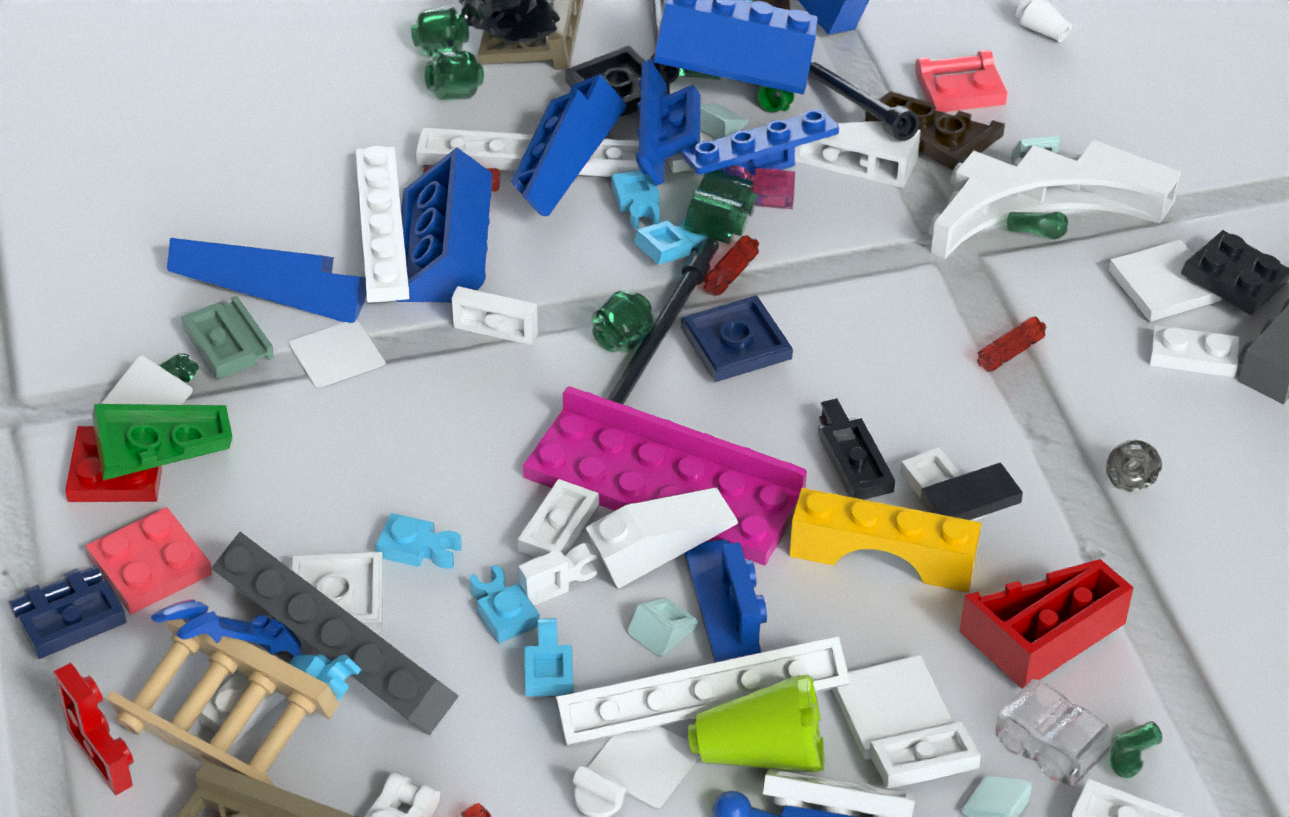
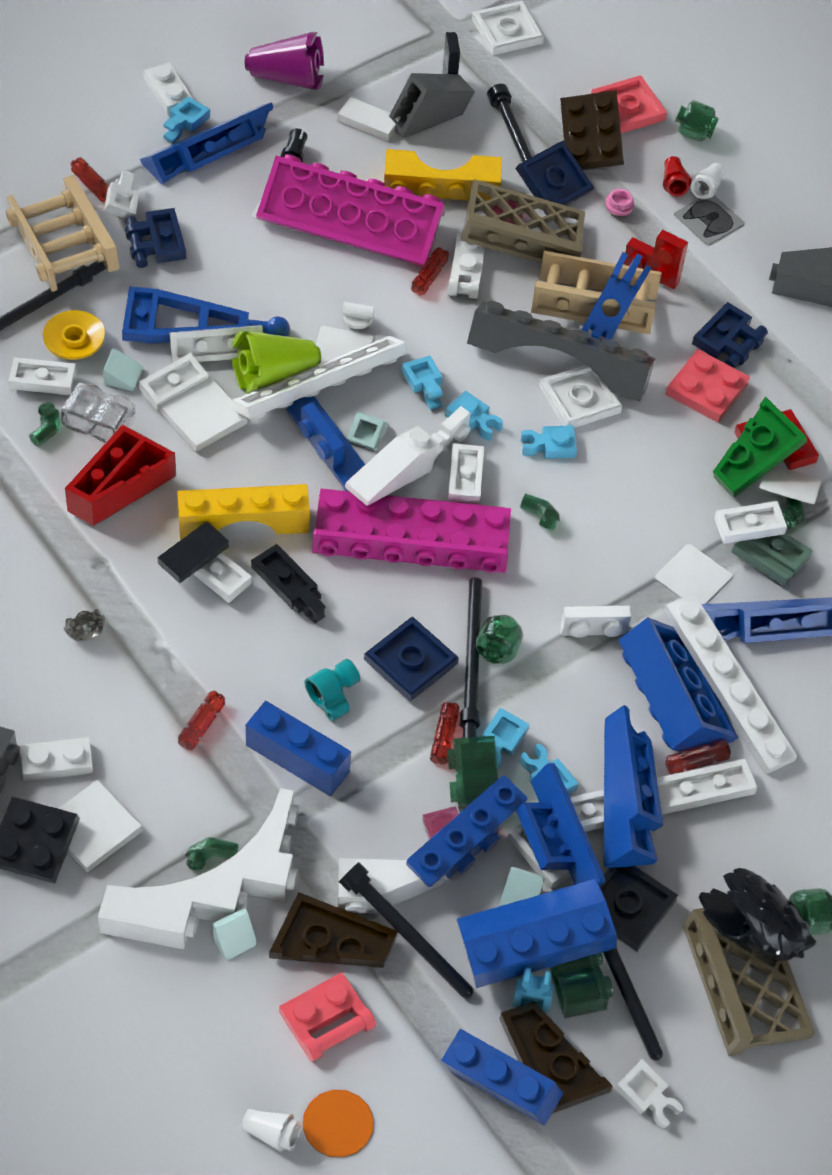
camera: 155 degrees right, 10 degrees up
(239, 344) = (750, 522): none -> white plate
(327, 671) = (543, 311): medium azure plate -> none
(453, 75) = (769, 858): clear green head -> none
(478, 460) = (541, 507): none -> clear green arm
(850, 330) = (327, 686): none -> teal piece
(911, 276) = (298, 748): none -> blue brick
(977, 21) = (338, 1123): none -> orange sticker

